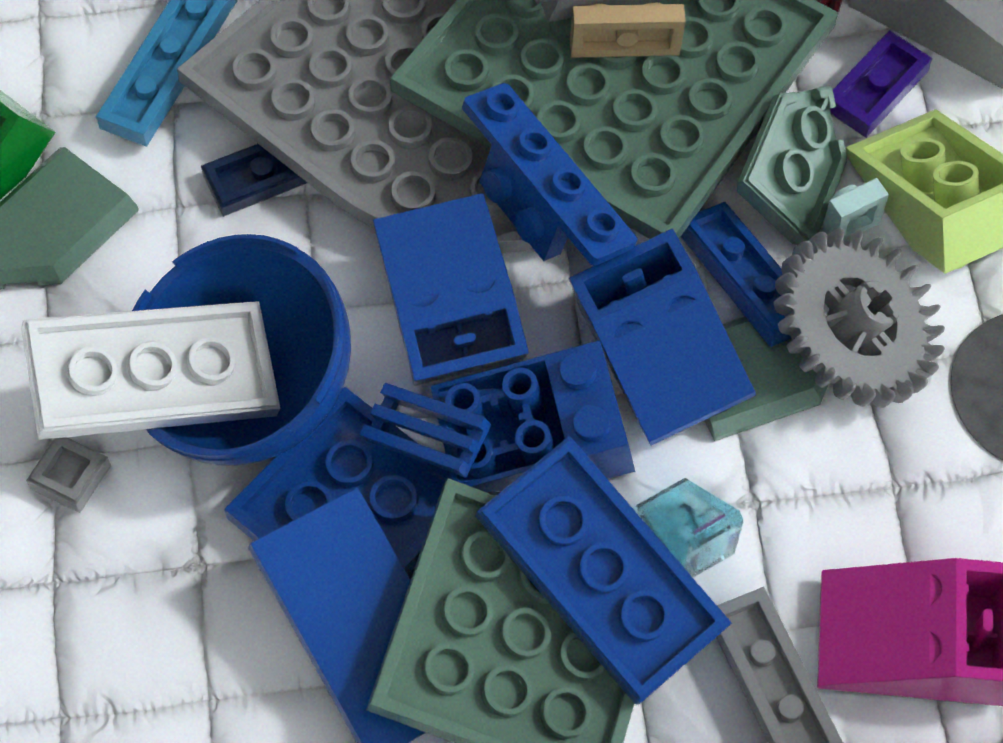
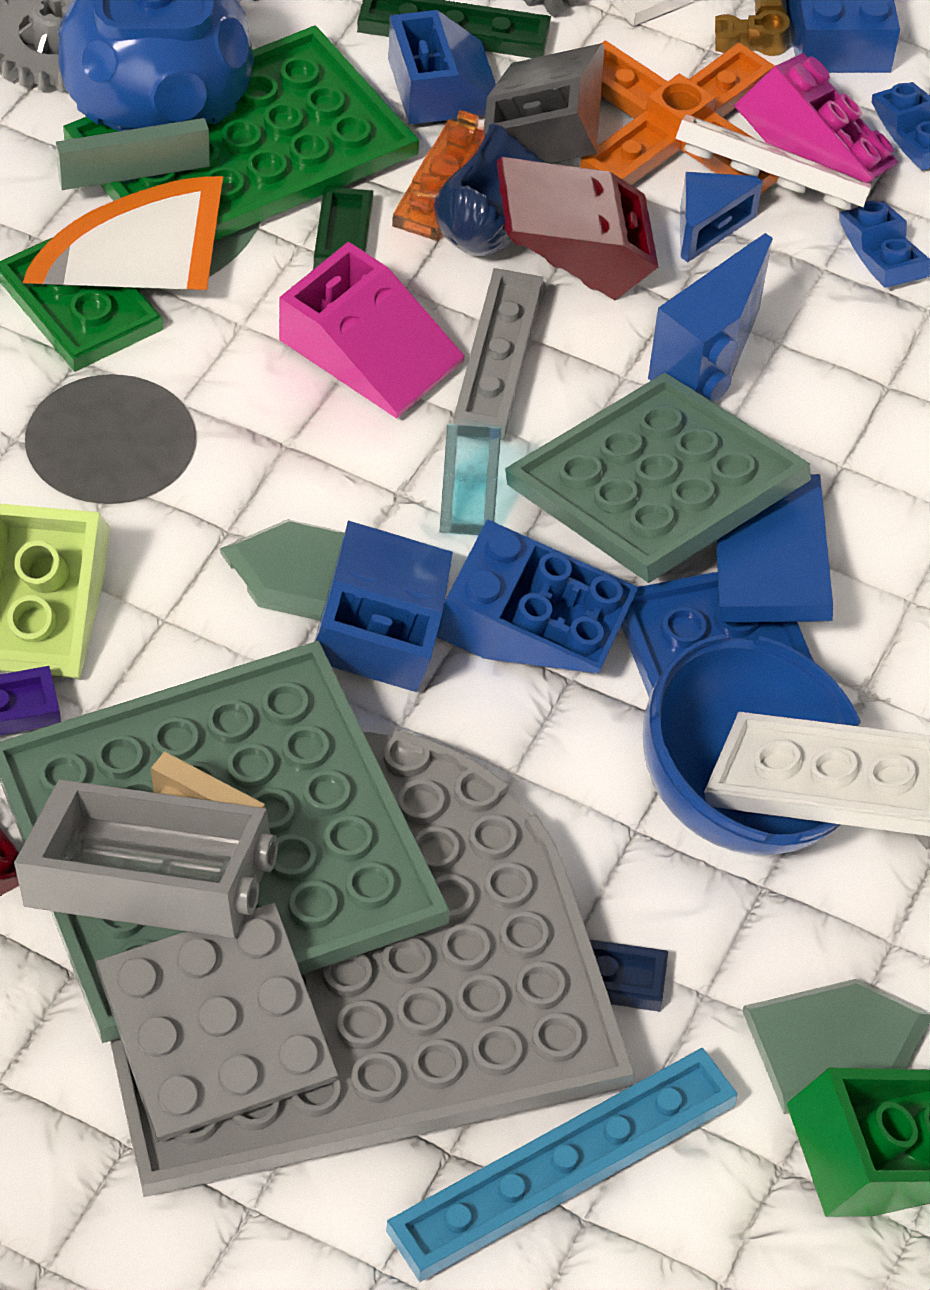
camera: 150 degrees left, 10 degrees down
(387, 414) = (641, 623): blue tile -> none
(450, 289) = (532, 716): blue slope -> none
(541, 184) = (392, 728): blue bracket -> none
(603, 570) = (572, 466): blue tile -> none
(738, 266) = (263, 604): blue tile -> none
(795, 163) = (141, 671): sand green tile -> none
(856, 208) = (130, 613): light aqua plate -> none
(857, 319) = (211, 508): light grey gear -> none

